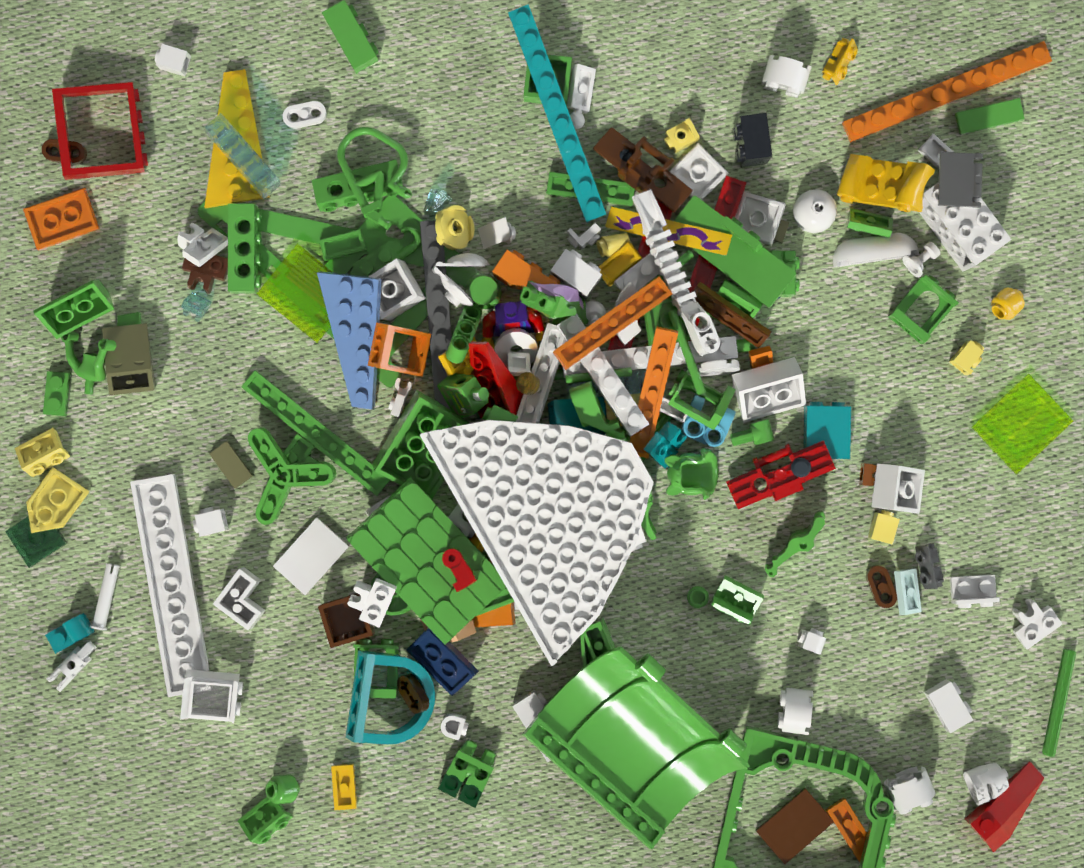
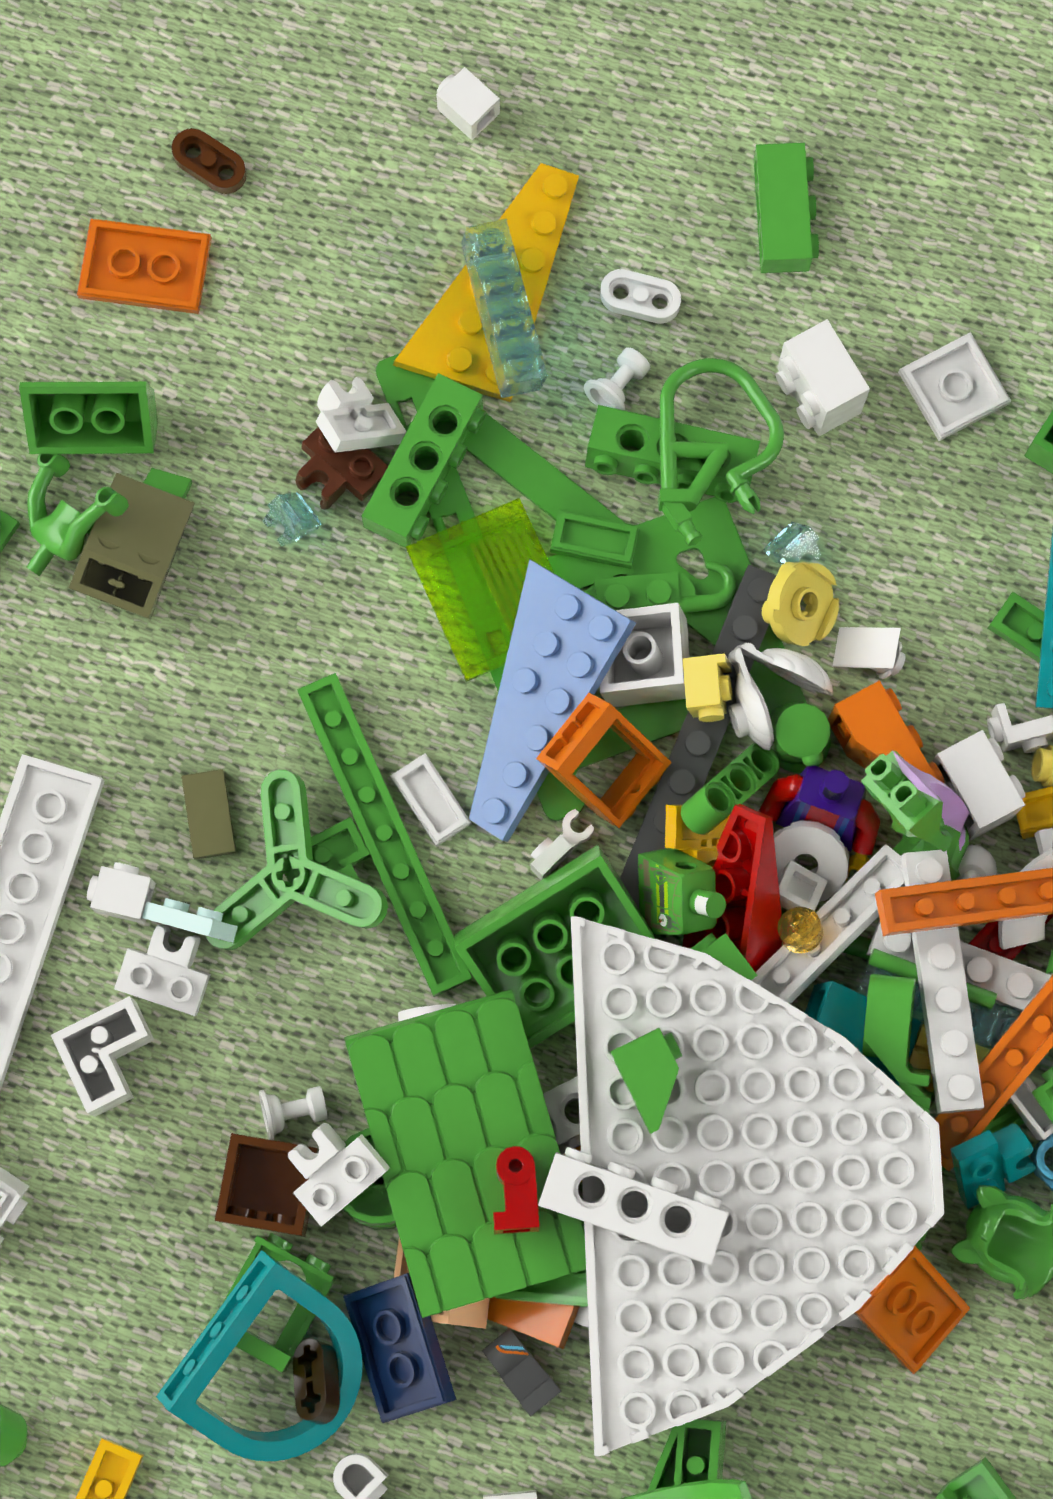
camera: 20 degrees right, 10 degrees down
(62, 131) = (260, 221): red window -> none
(250, 547) = (164, 973): none -> white plate
(254, 518) = (204, 922): none -> light aqua plate
(311, 556) = (263, 1043): white tile -> none
(314, 171) = (609, 392): none -> white piece
(329, 406) = (430, 799): none -> white tile
(333, 585) = (276, 1112): none -> white piece
(410, 113) = (821, 378): none -> white brick
(429, 291) = (707, 686): none -> light yellow brick
(475, 83) = (954, 386): none -> white tile
(479, 562) = (696, 1241): none -> white brick
(490, 488) = (649, 1073): none -> bright green slope
(502, 643) = (521, 1372): none -> dark grey leg
(661, 528) = (912, 1310): none -> orange tile
(697, 597) = (915, 1472): bright green plate -> none

